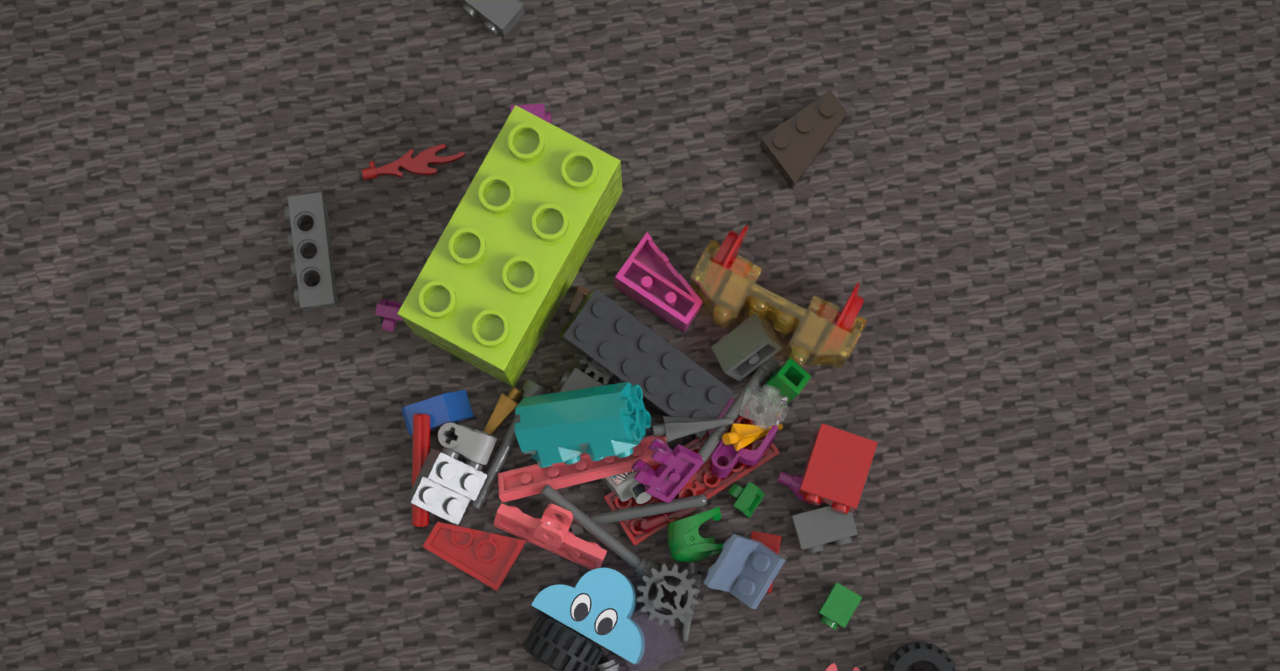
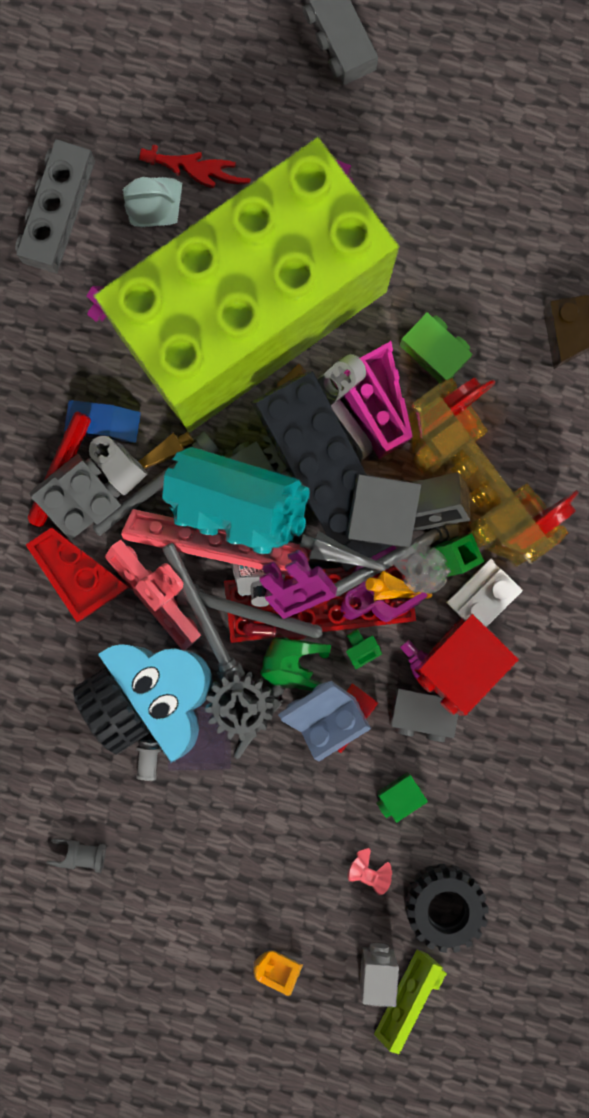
camera: 25 degrees right, 5 degrees up
(390, 208) = (152, 201): none -> light aqua piece
(651, 320) = (354, 433): none -> light grey beam
(687, 219) = (436, 348): none -> bright green brick
(708, 374) = (383, 510): none -> dark grey tile
(826, 403) = (485, 594): none -> white plate

